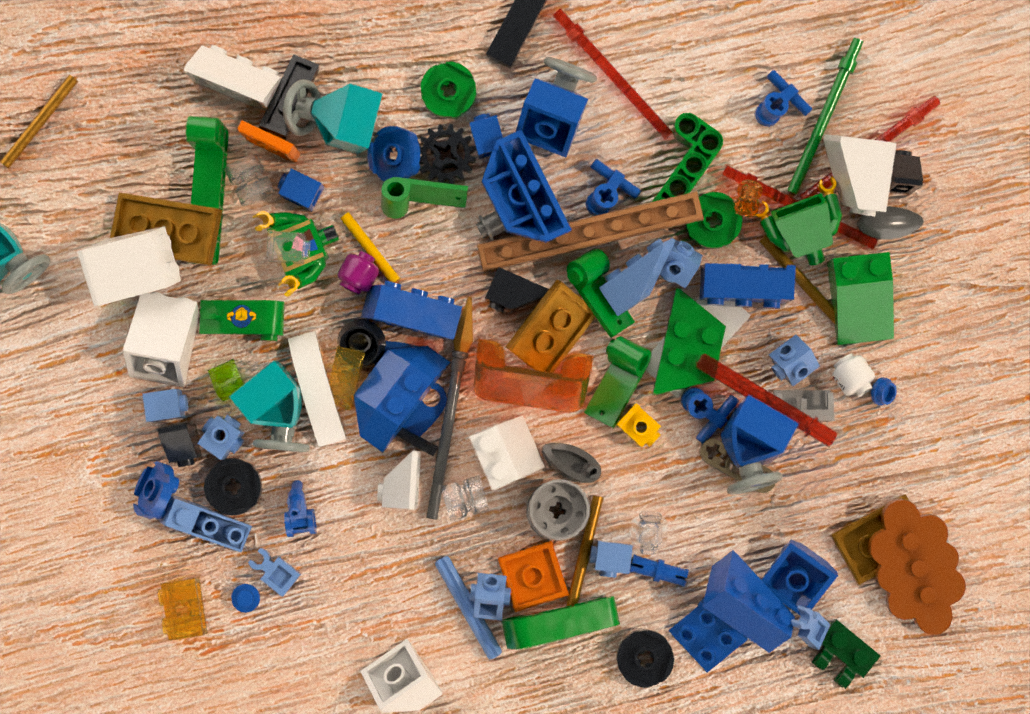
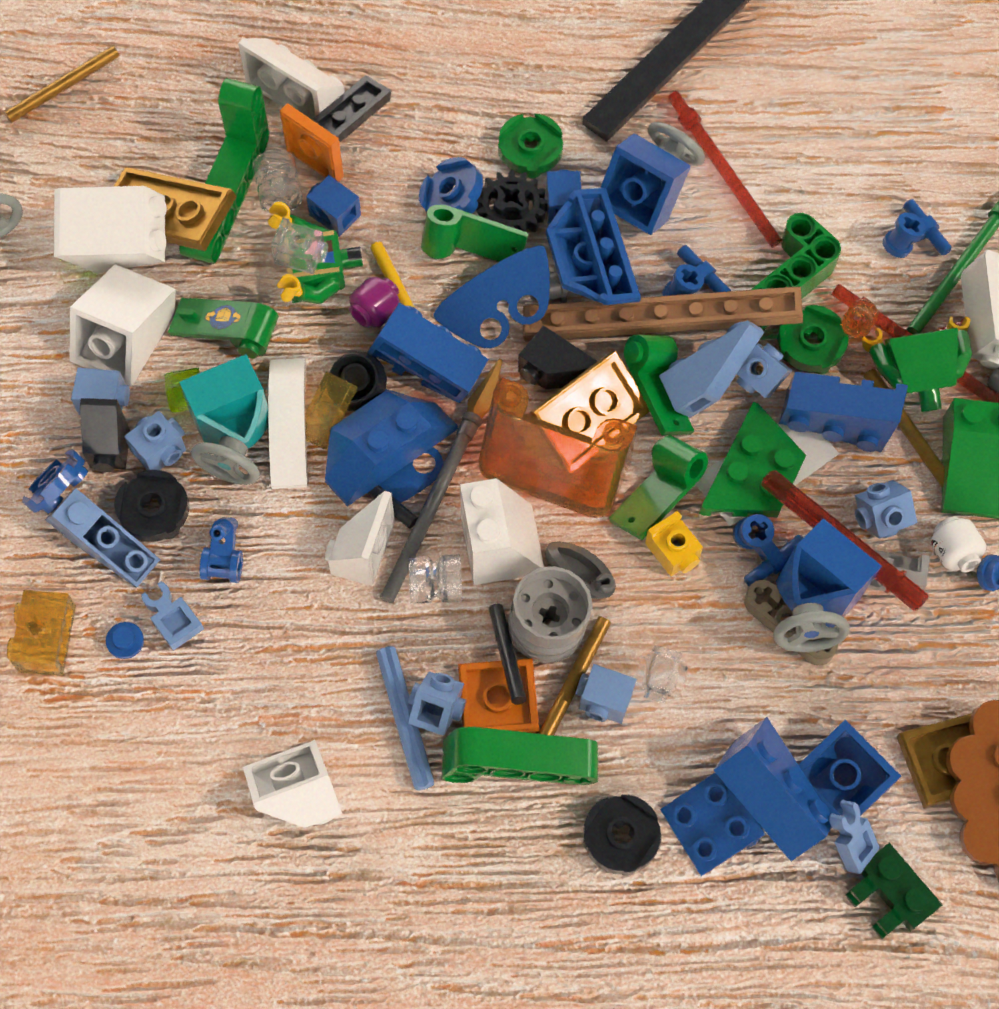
camera: 10 degrees right, 20 degrees down
(342, 117) = (399, 130): teal piece -> none
(460, 230) = (508, 281): none -> blue piece
(532, 543) = (507, 654): none -> black bar
(659, 570) = (663, 727): blue pin -> none

